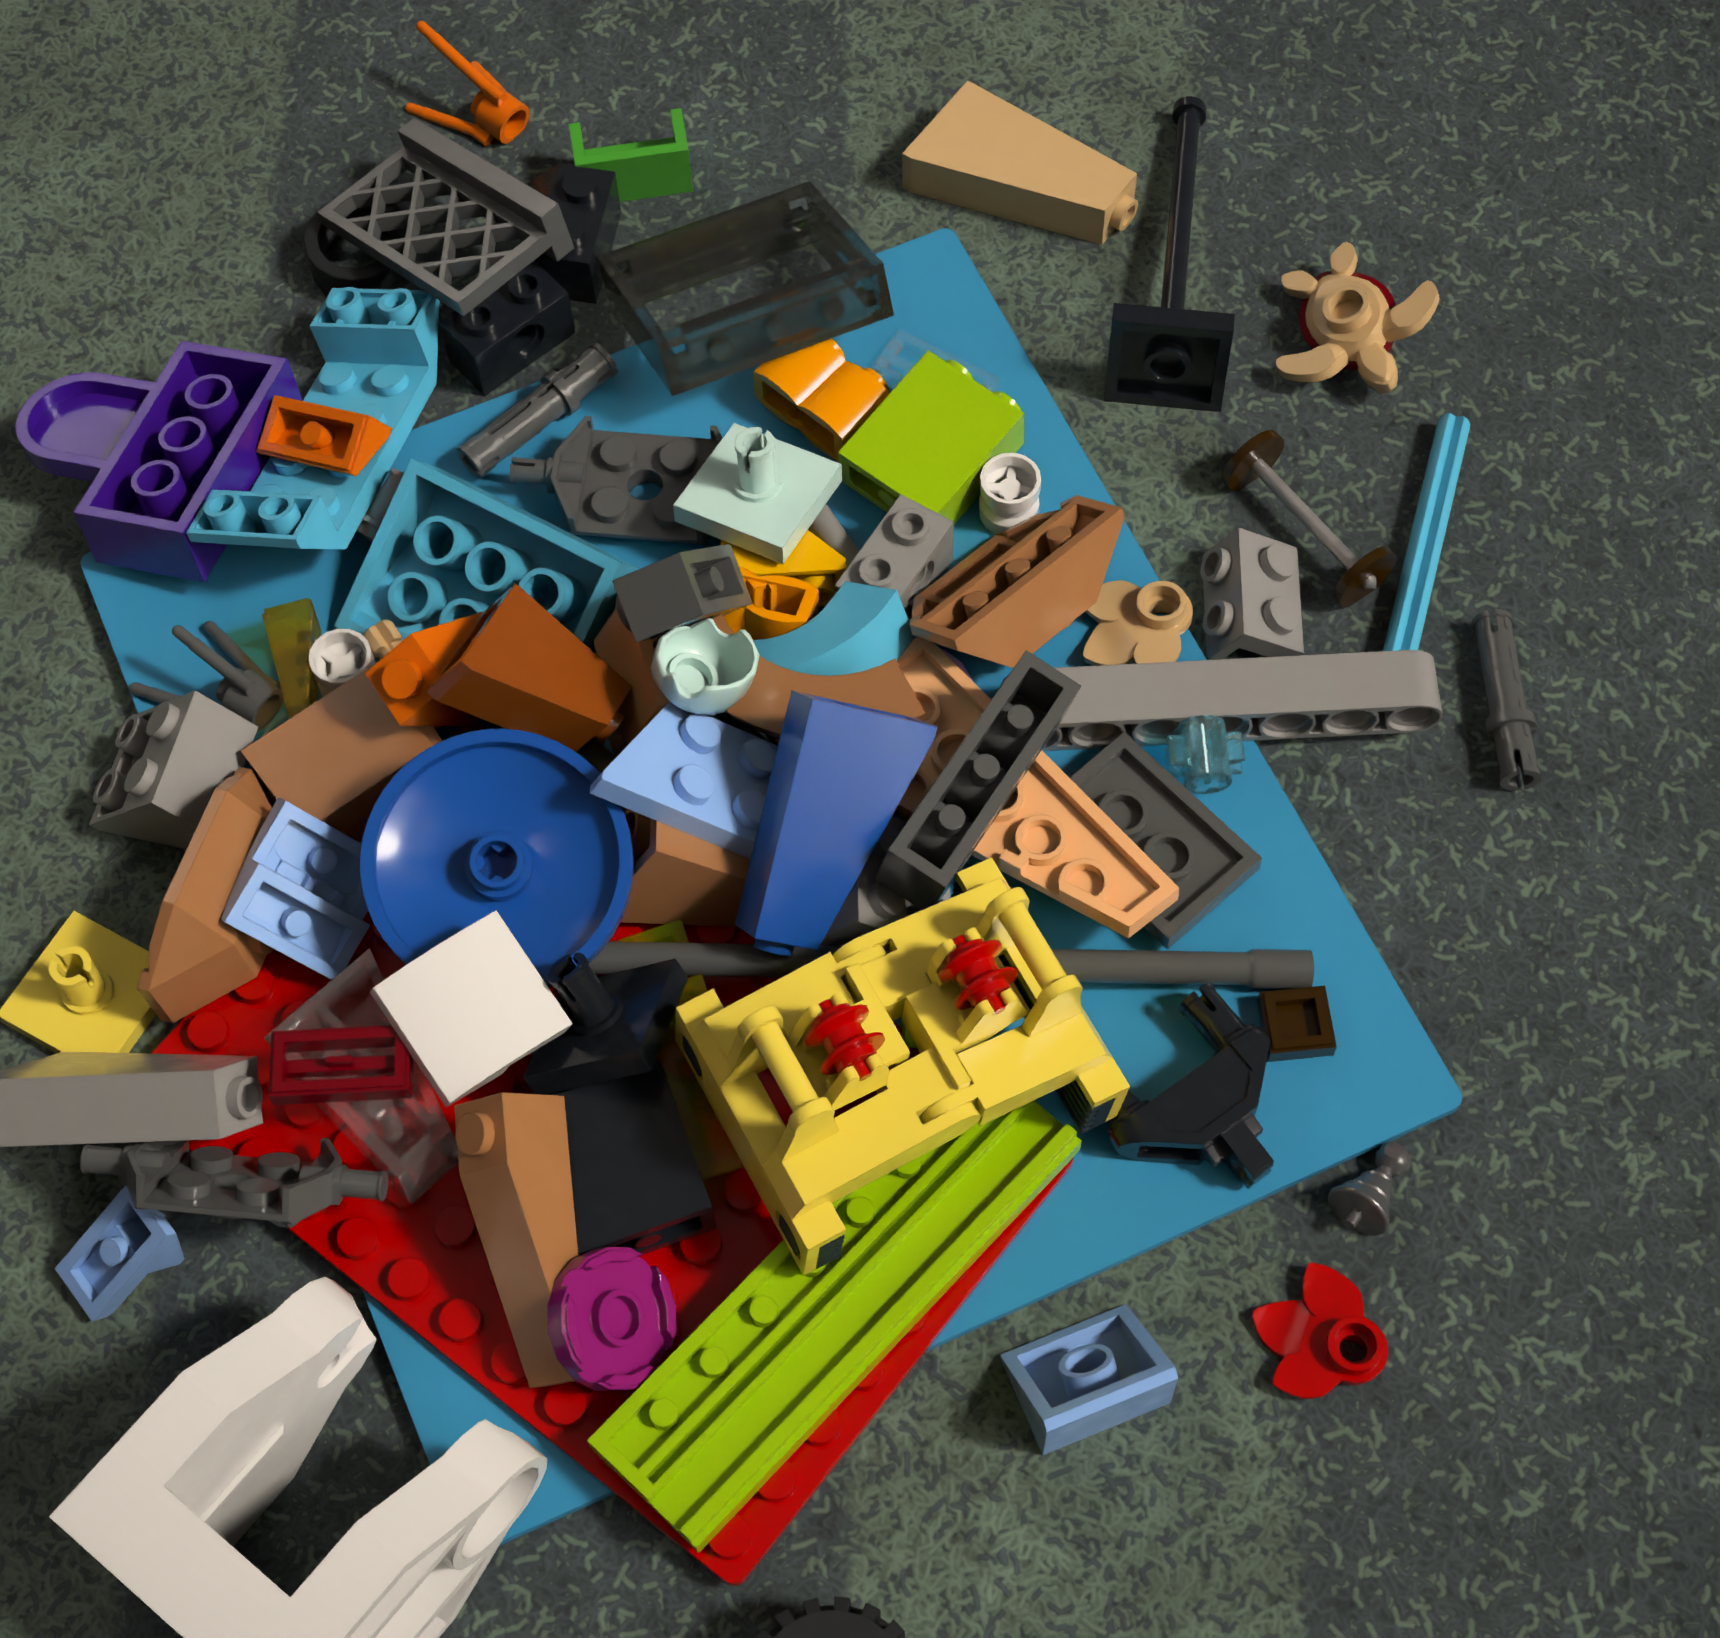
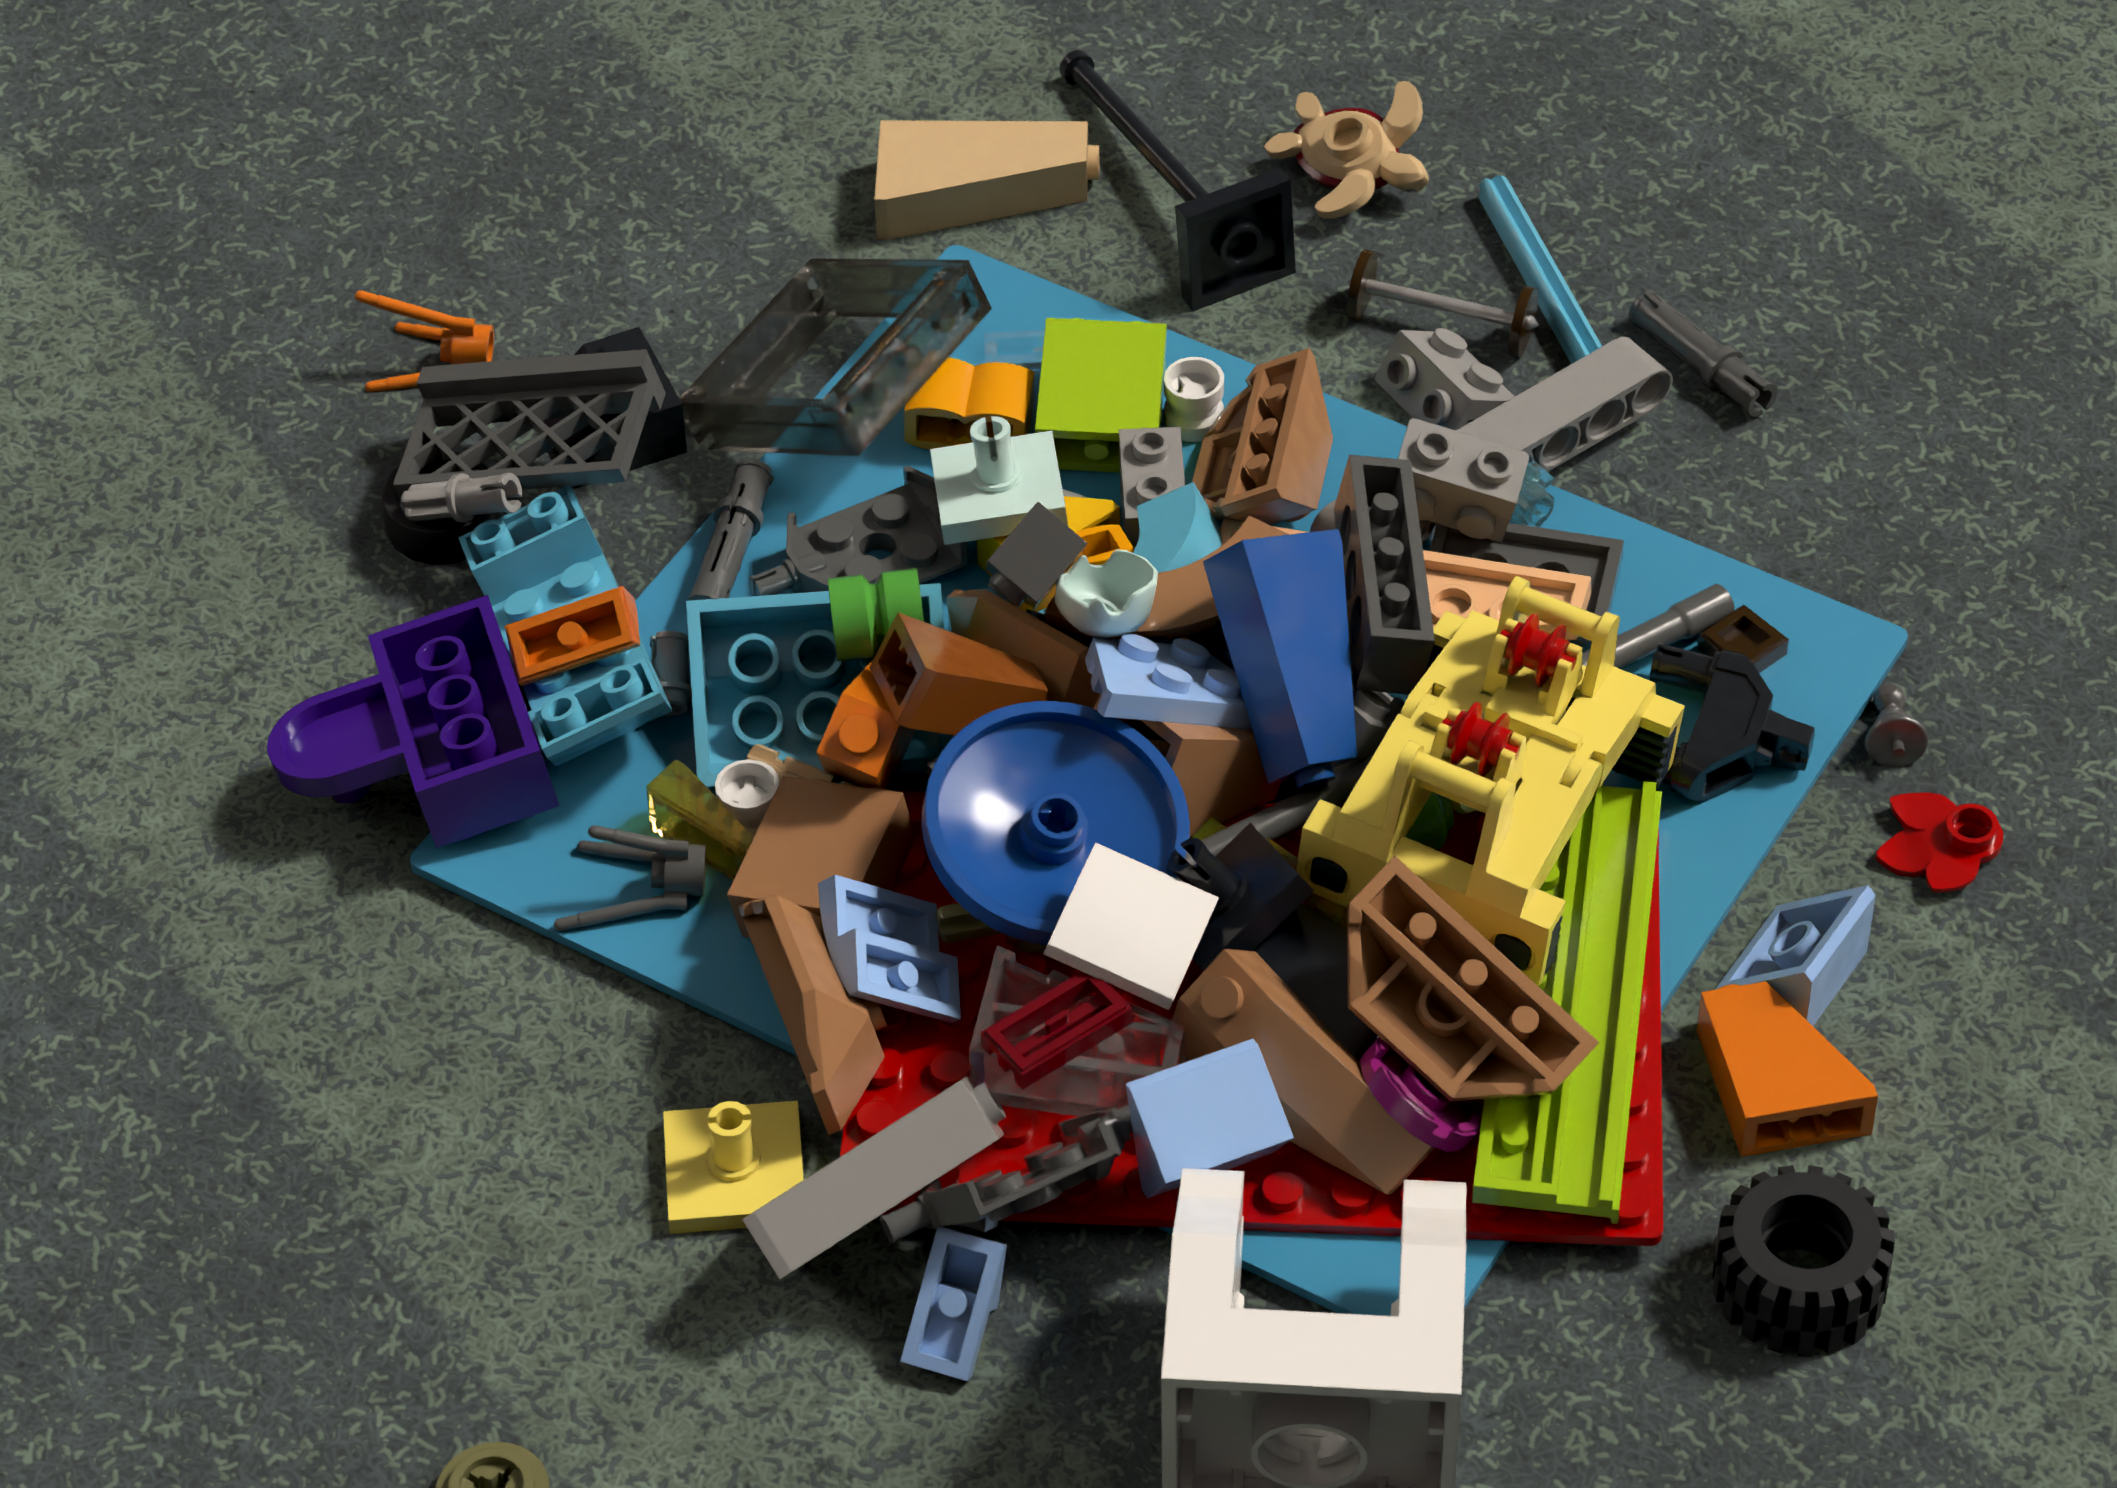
camera: 35 degrees left, 15 degrees down
(169, 769) = (668, 953): light grey slope -> none
(347, 256) = (462, 497): none -> light grey axle
(397, 1235) = (1205, 1116): none -> light blue slope
(509, 328) = (637, 514): black brick -> none
(545, 565) = (866, 610): none -> bright green wheel
(641, 167) = (659, 311): bright green panel -> none
(680, 1260) = (1452, 996): none -> medium nougat wedge
(971, 1483) = (1778, 1073): none -> orange slope
(1131, 630) = (1375, 431): tan plate -> none
(1134, 718) = (1463, 479): none -> light grey bracket

